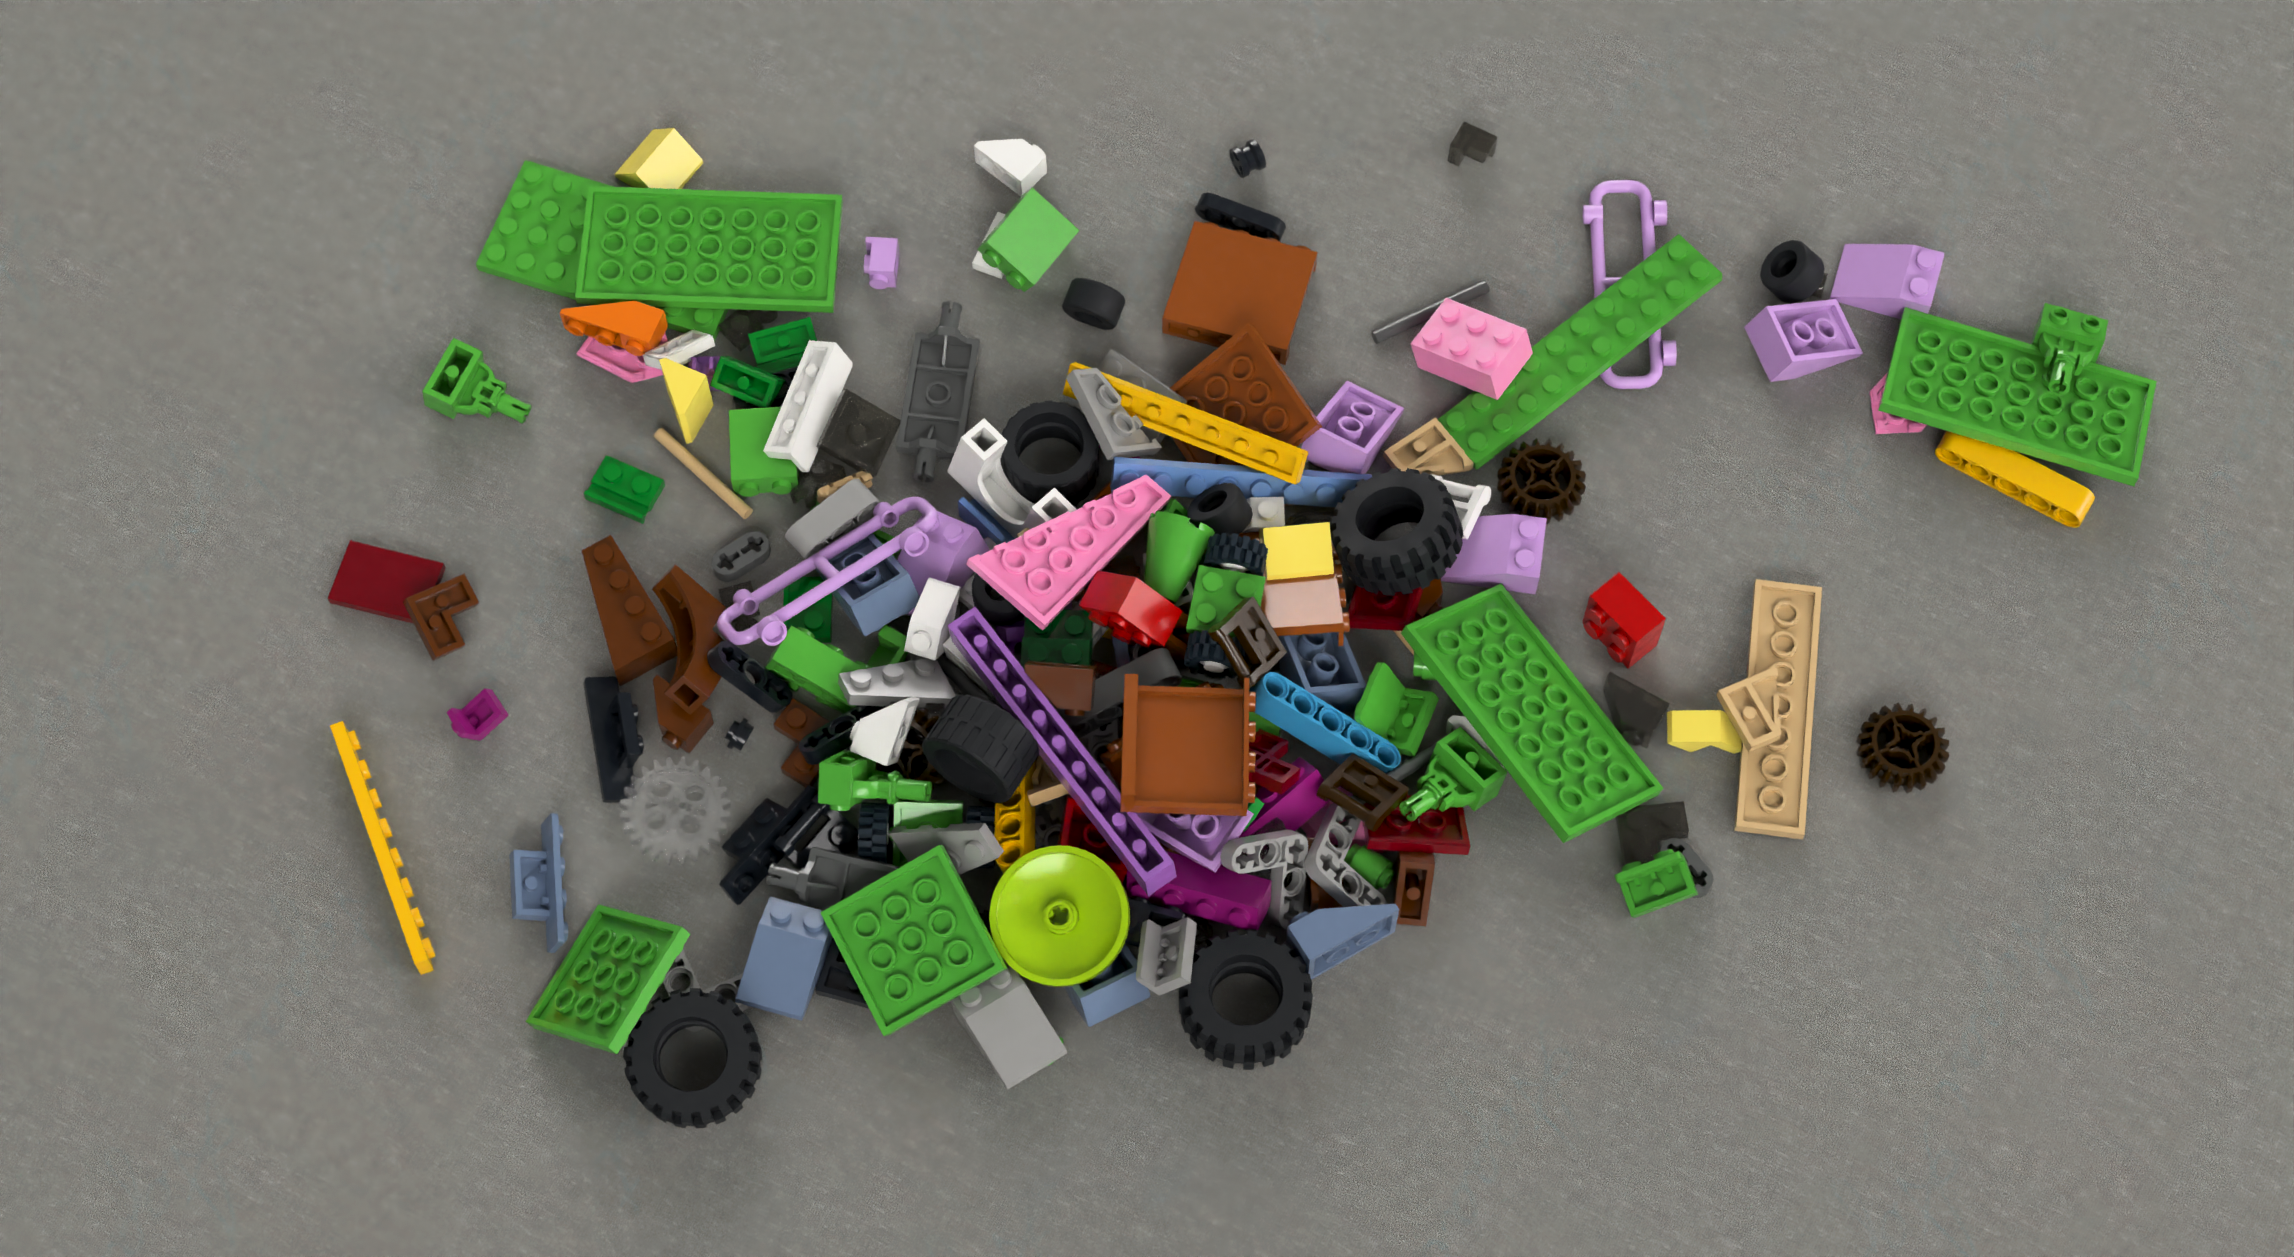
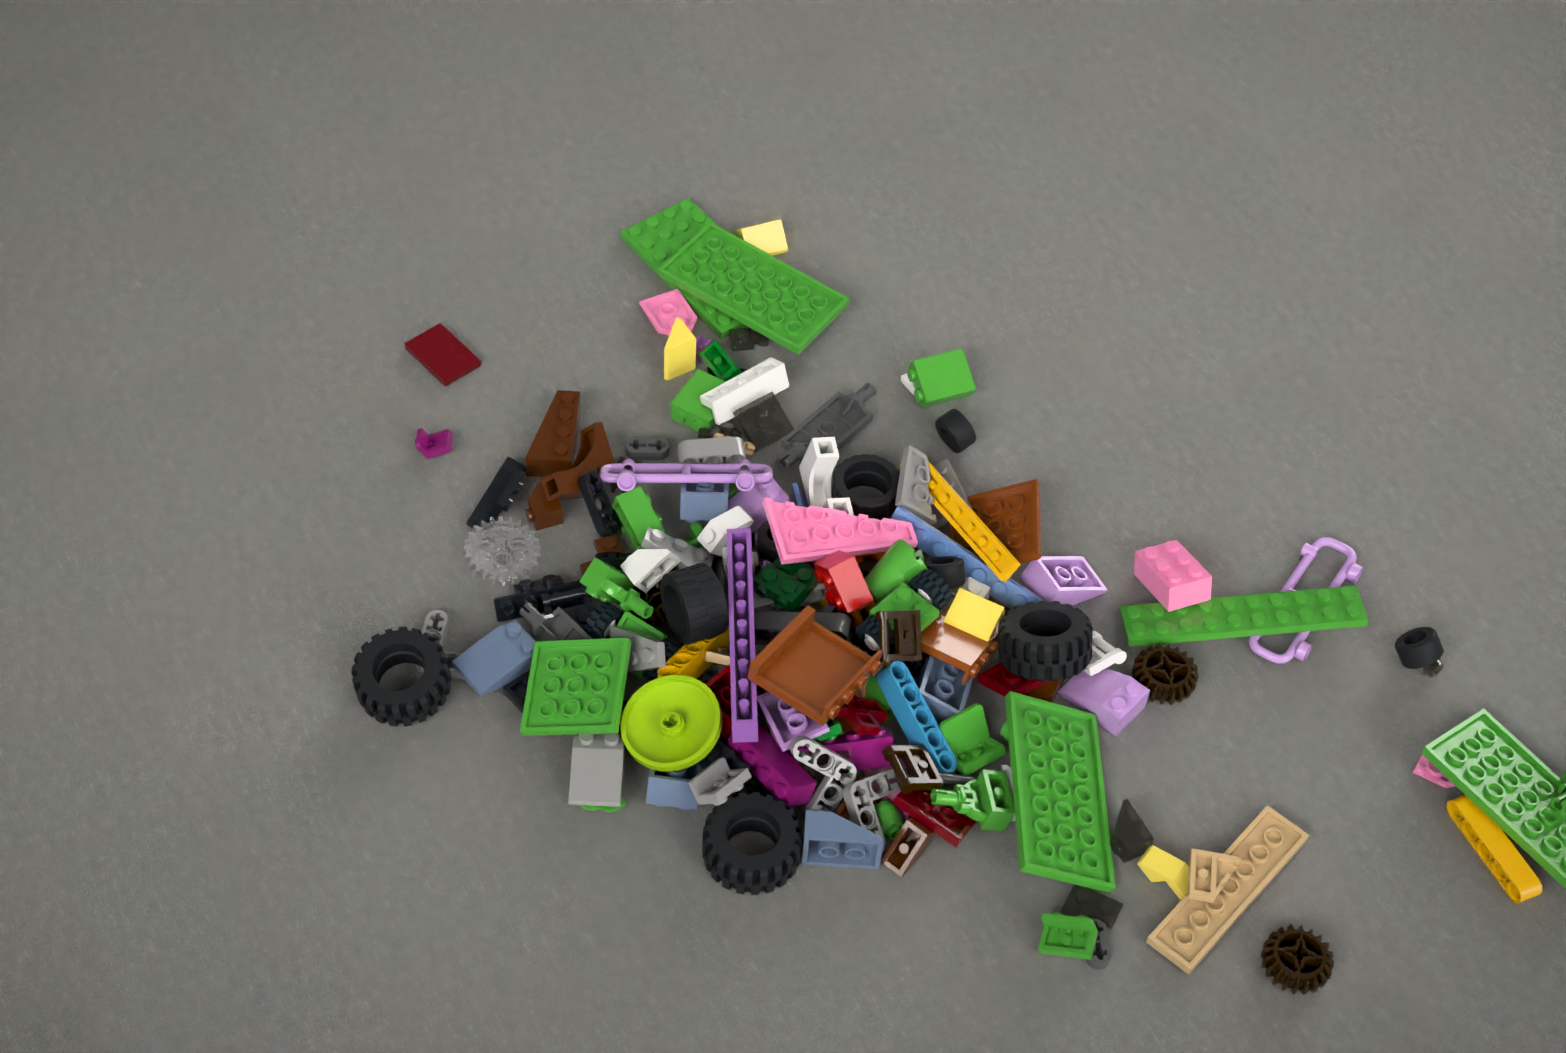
camera: 30 degrees right, 15 degrees down
(388, 859) = (326, 480): yellow plate -> none
(433, 614) = (454, 378): reddish brown plate -> none
(469, 386) = (565, 283): bright green brick -> none
(538, 884) = (392, 543): sand blue bracket -> none
(608, 978) = (389, 606): bright green plate -> none
(622, 324) = (673, 297): orange slope -> none
(624, 489) = (610, 381): green plate -> none
(680, 348) = (698, 327): white plate -> none
(703, 473) = (660, 395): tan bar -> none
(739, 734) = (570, 533): black plate -> none
(781, 345) = (751, 354): green plate -> none
(816, 617) = (664, 497): green plate -> none
(882, 261) = (848, 347): lavender brick -> none
(1012, 162) = (966, 336): white slope -> none
(1065, 685) = (771, 599): reddish brown slope -> none
(1237, 281) = (1058, 463): dark orange panel -> none
(1239, 216) = (1081, 437): black beam -> none
(1247, 158) = (1110, 409): black wheel -> none
(1425, 314) = (1138, 545): dark grey bar -> none
(1429, 451) = (1106, 619): tan wing -> none
(1473, 143) = (1258, 472): clear smoke panel -> none
(1623, 620) = (1158, 775): red brick -> none
(1801, 338) = (1400, 690): lavender slope -> none
(1887, 277) = (1487, 687): lavender slope -> none

